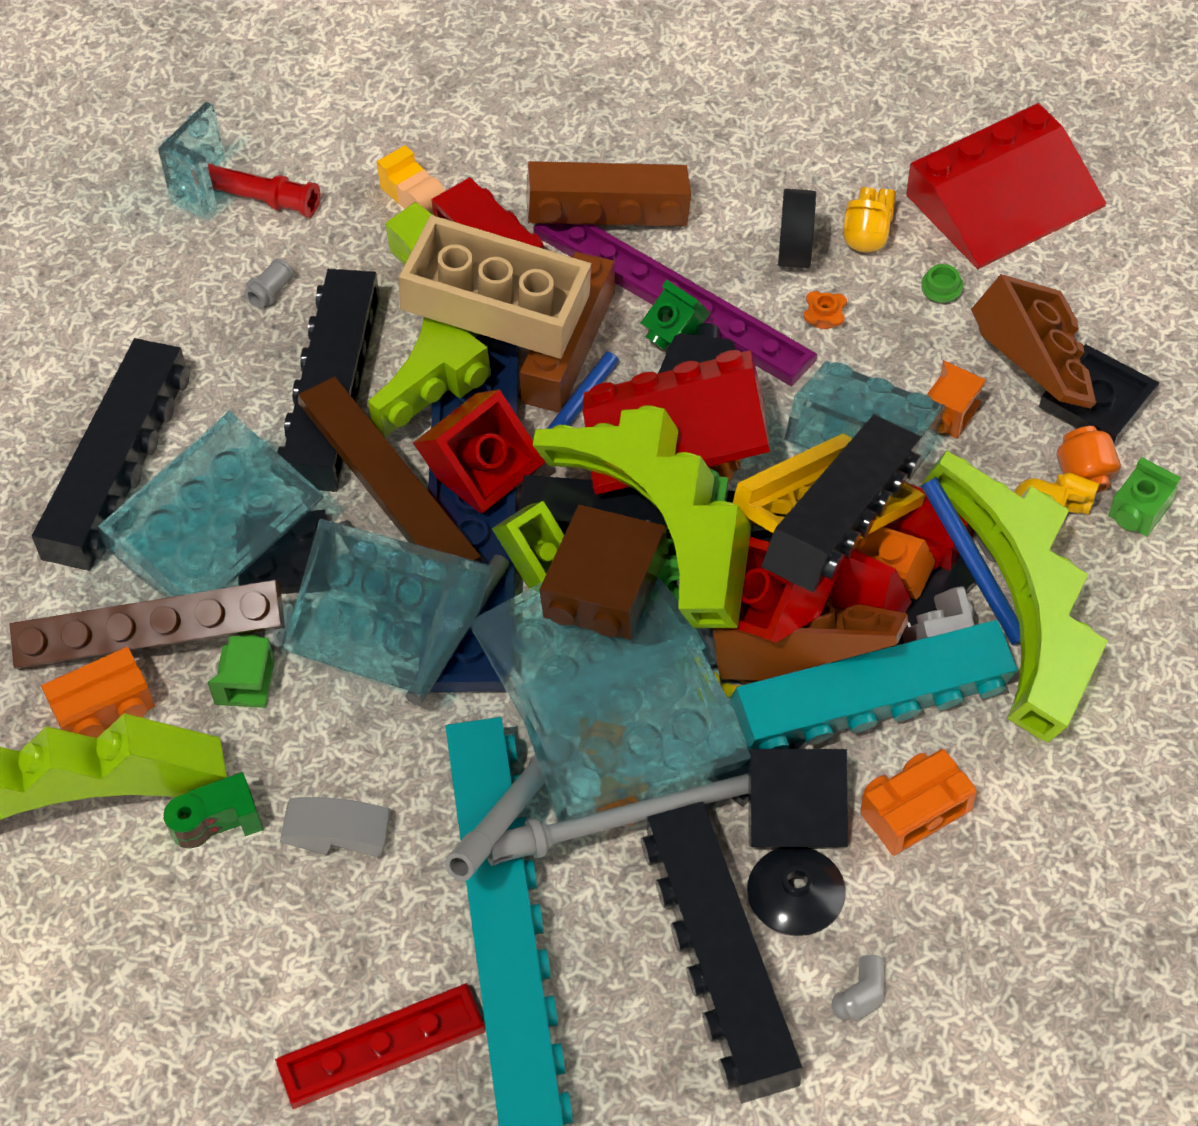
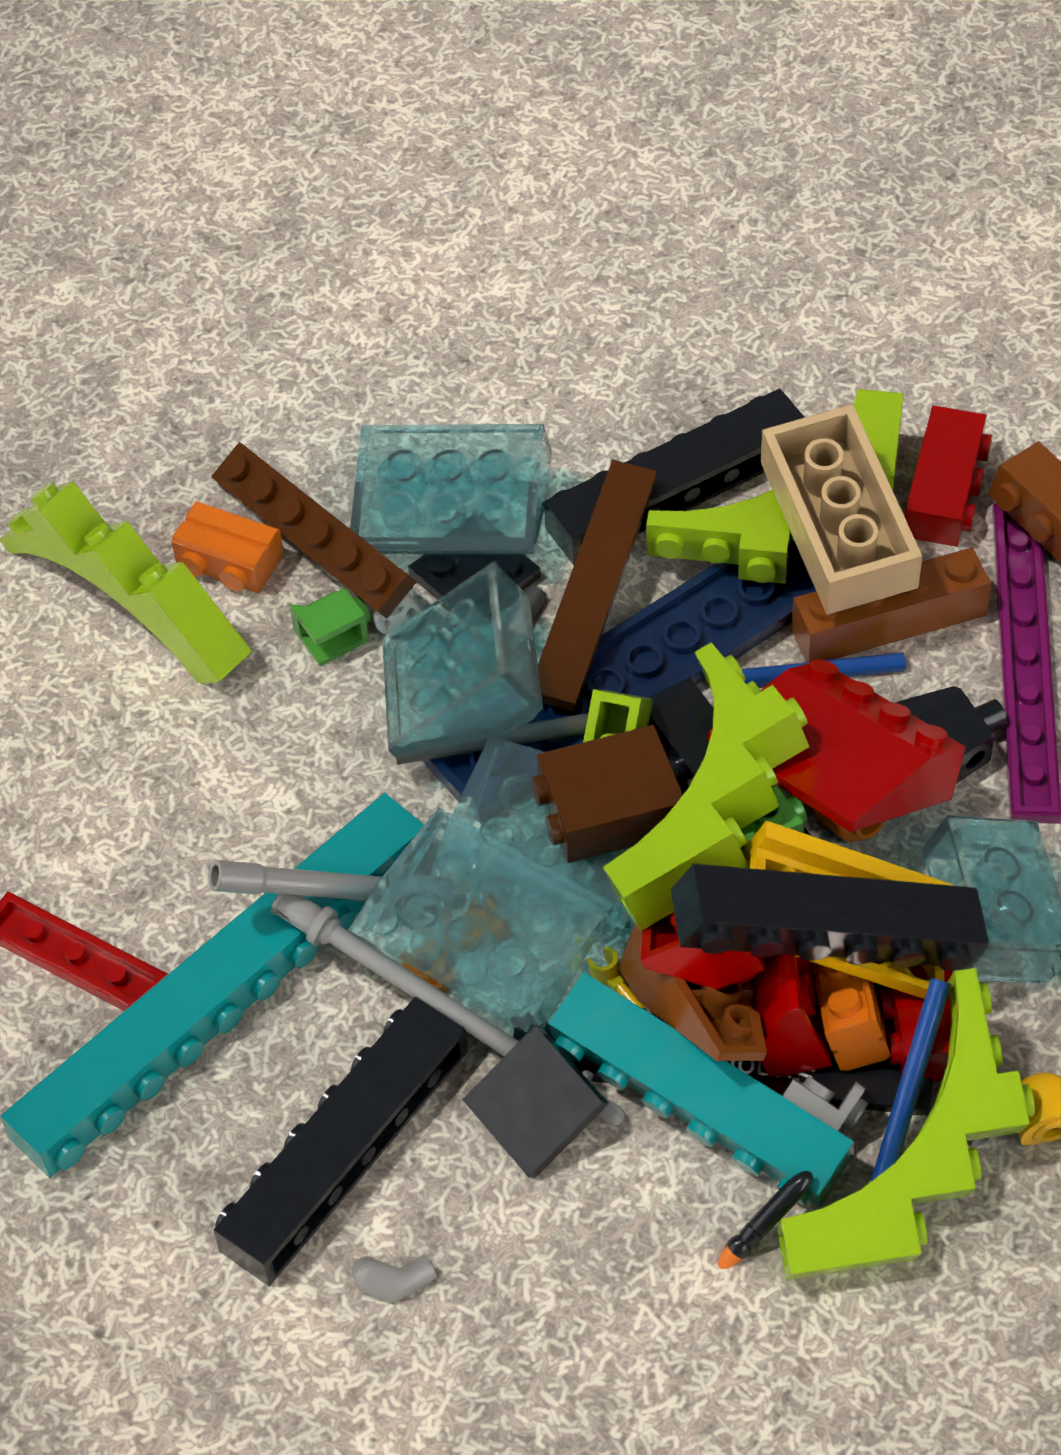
camera: 55 degrees right, 0 degrees up
(111, 453) = (470, 382): black brick -> none
(186, 162) = (808, 212): clear light blue bracket -> none
(212, 810) = (189, 695): green leg -> none
(262, 290) = (739, 363): light grey pin -> none
(277, 192) = (843, 297): red pin -> none
(324, 822) = (242, 786): light grey slope -> none
(406, 180) = (948, 375): leg -> none
(480, 450) = (677, 619): red slope -> none
(686, 316) = (986, 672): green brick -> none
(790, 908) = (462, 1186): black dish -> none
(917, 800) = (616, 1201): orange brick -> none
(1006, 718) = (765, 1219): none -> black piece

